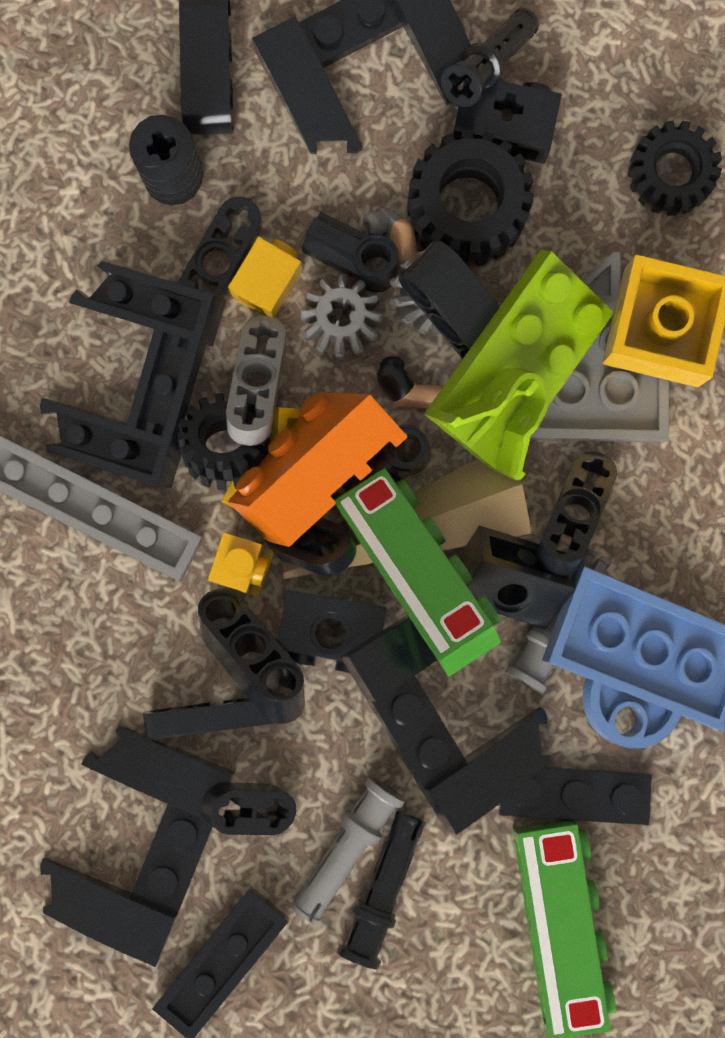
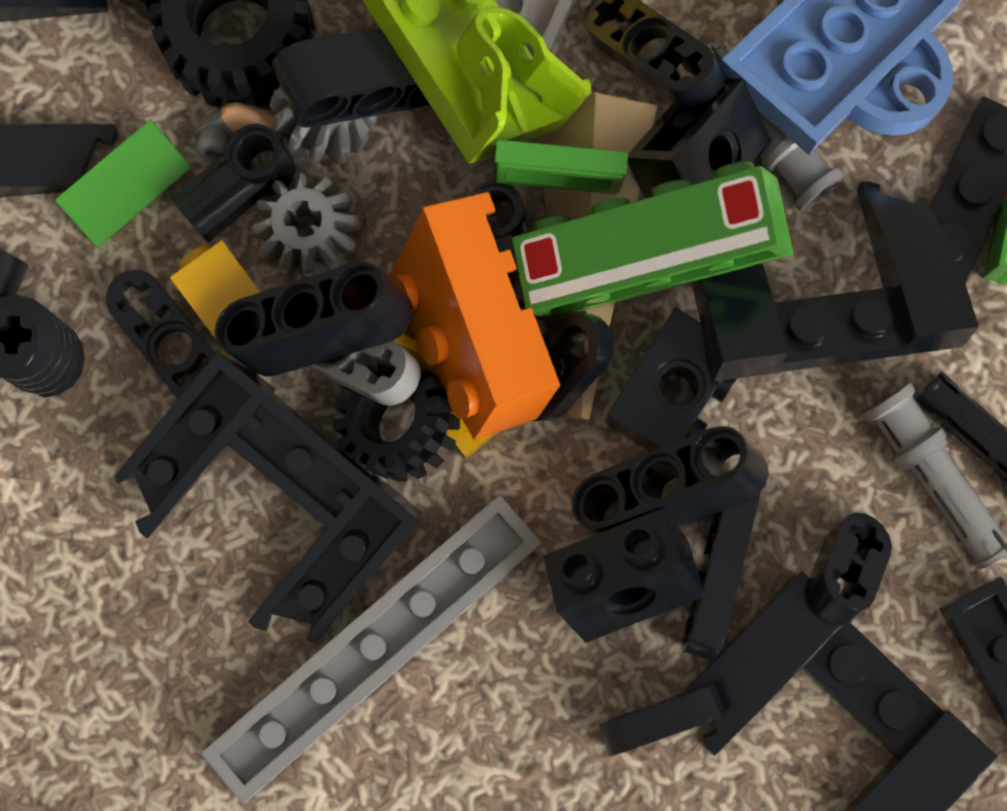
camera: 65 degrees left, 5 degrees down
(88, 716) = (662, 719): none -> black beam
(175, 648) = (623, 575): none -> black brick
(241, 564) = (552, 461): yellow brick -> none
(264, 352) = (314, 319): none -> black beam
(319, 173) = (123, 183): none -> bright green tile
(400, 386) = (408, 195): black arm -> none
(449, 479) = (559, 167): none -> bright green tile

